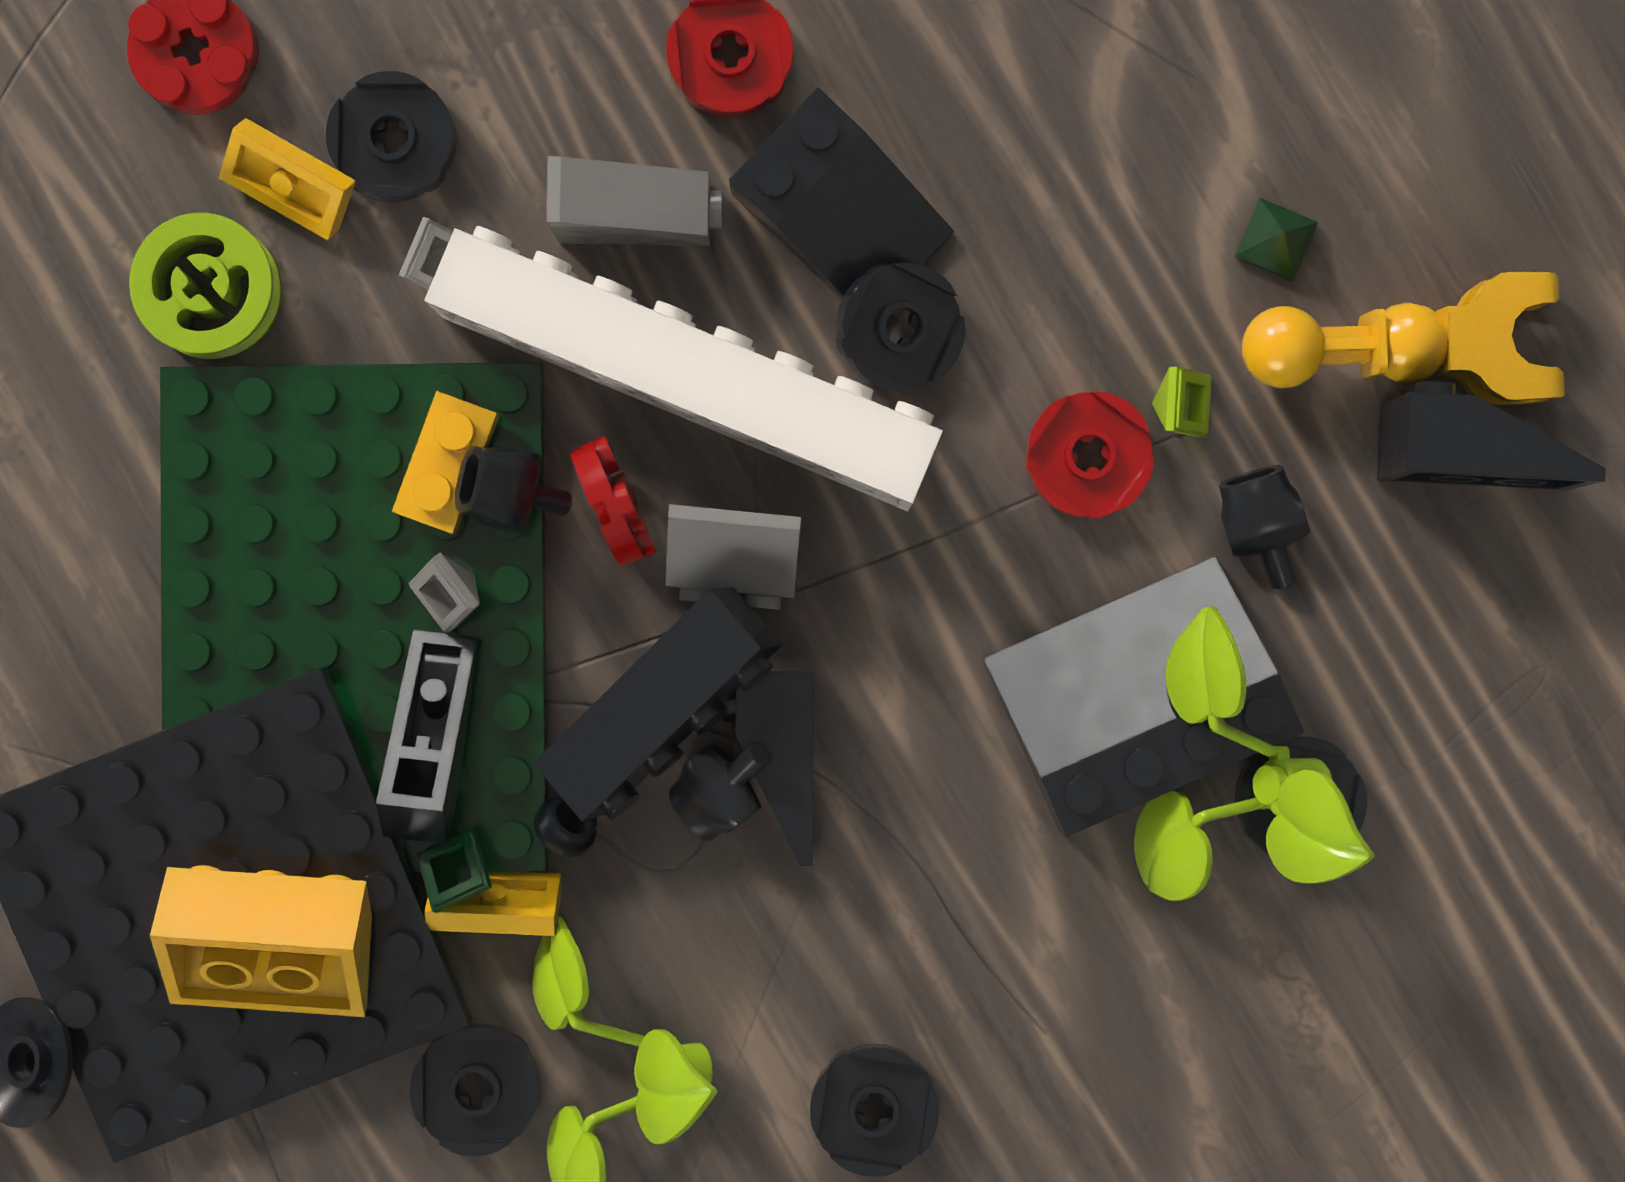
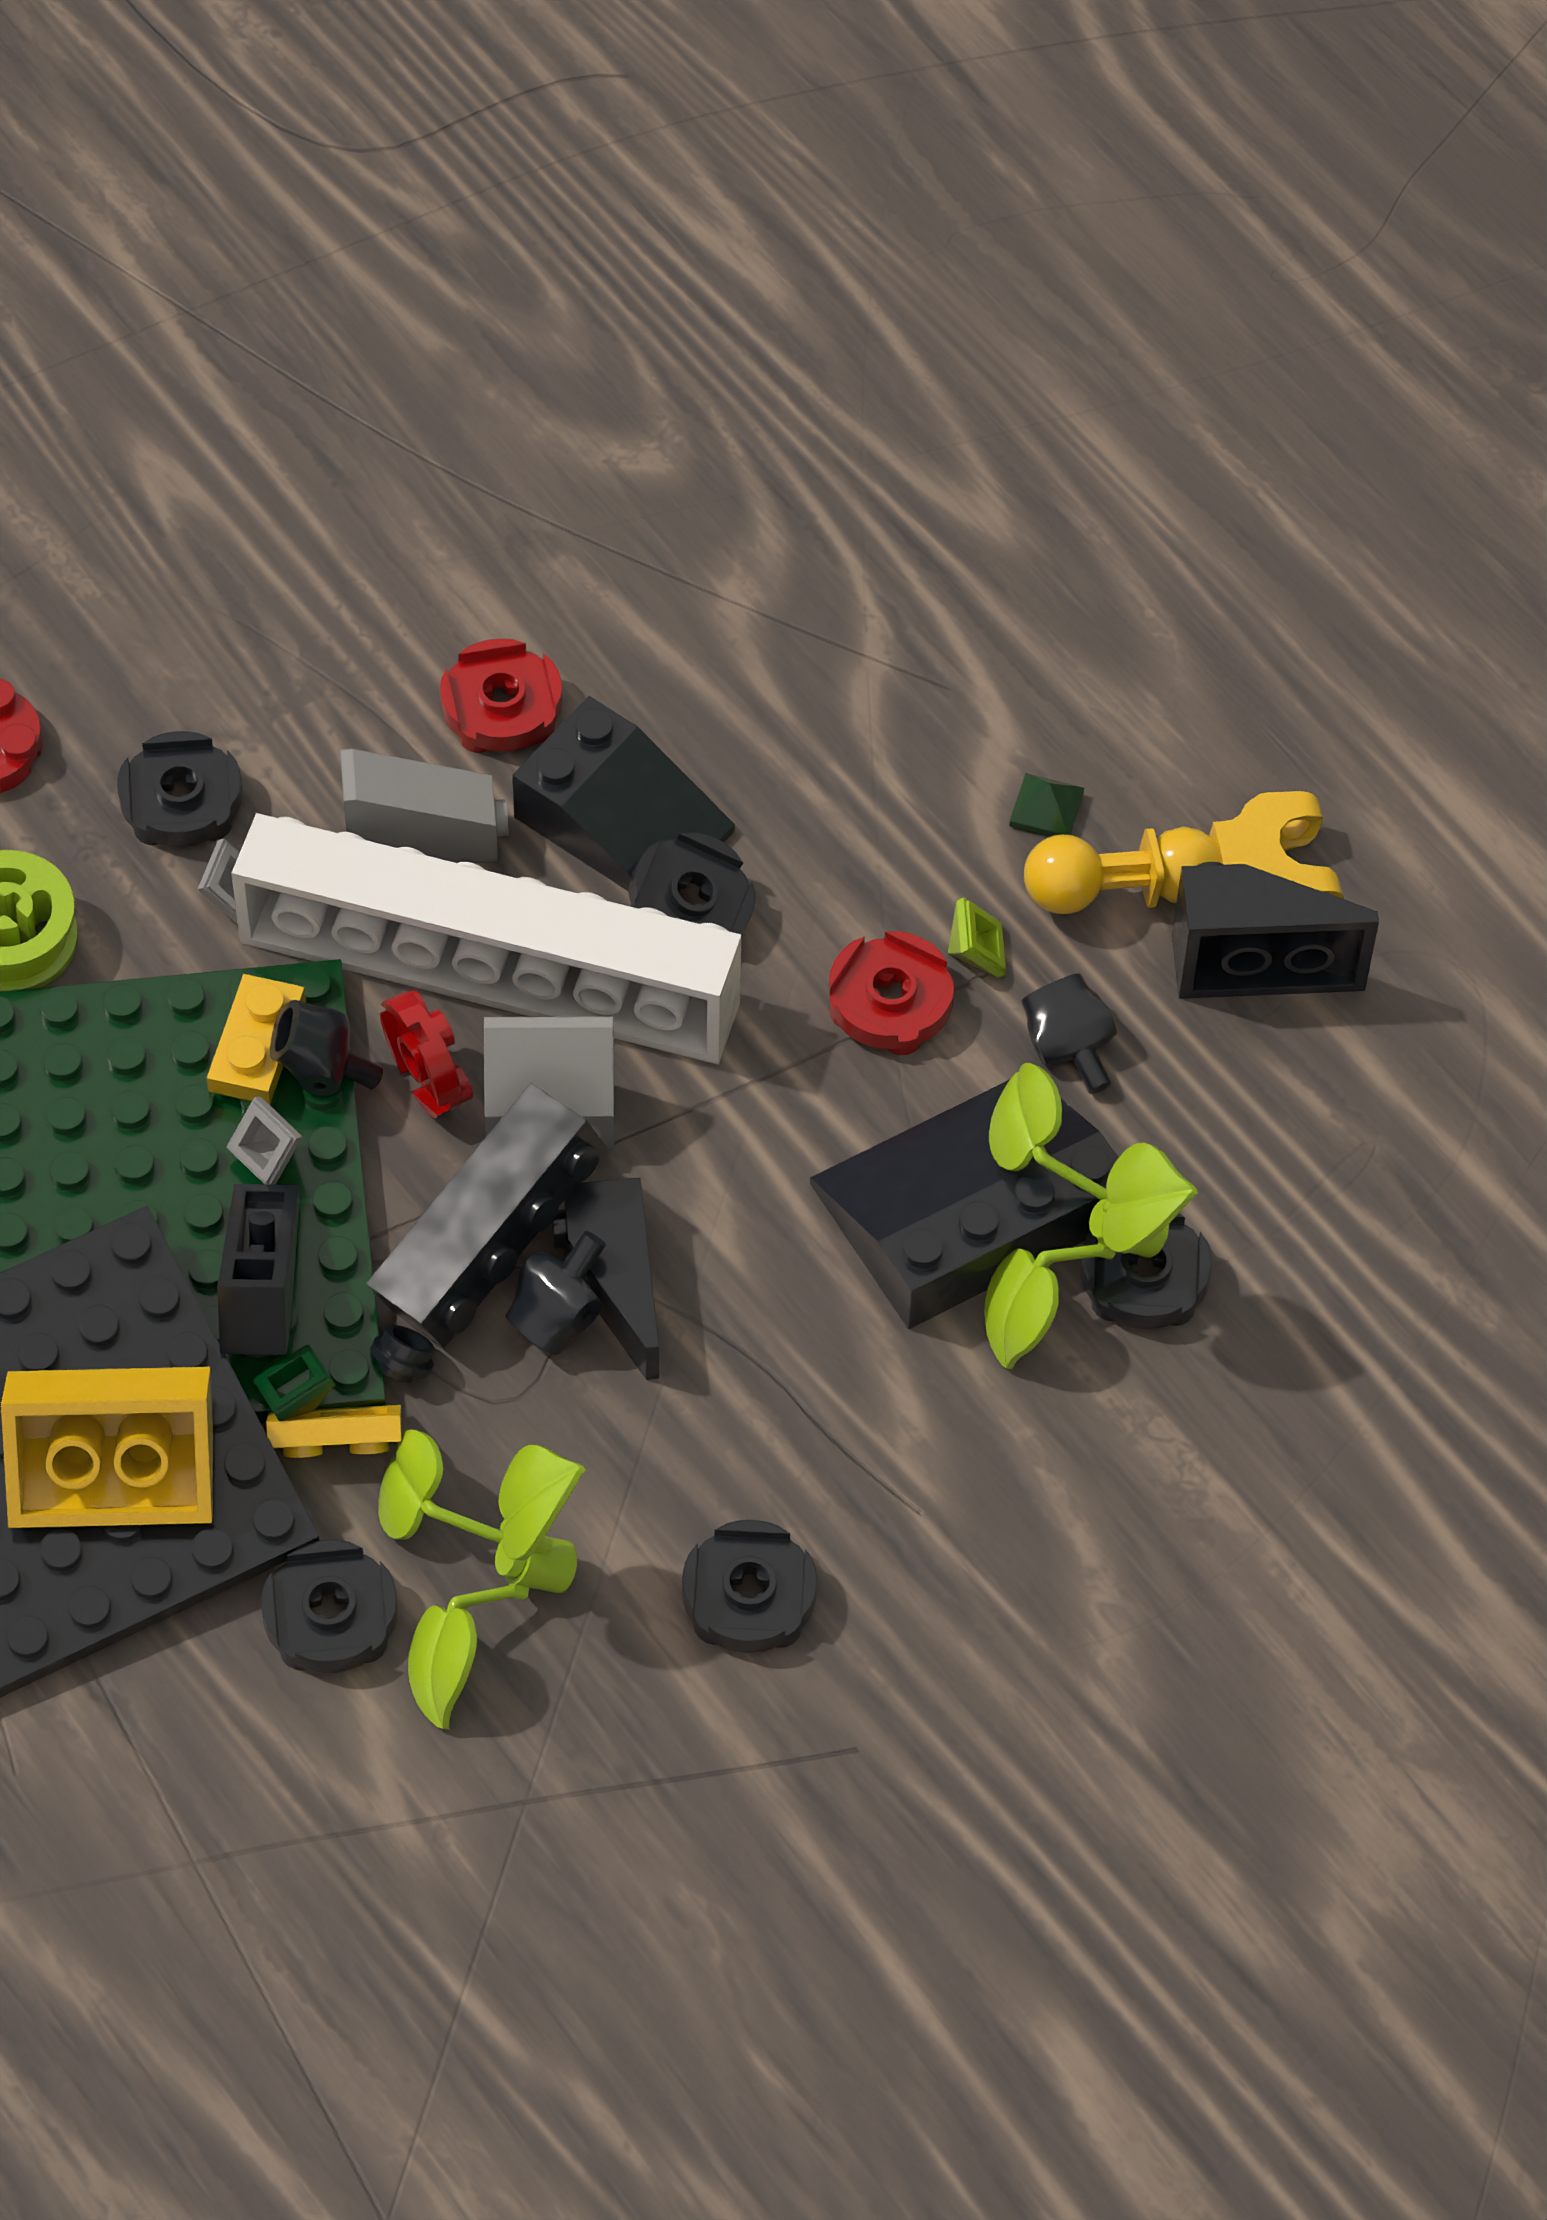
camera: 10 degrees left, 30 degrees down
(286, 179) = (80, 828): yellow plate -> none

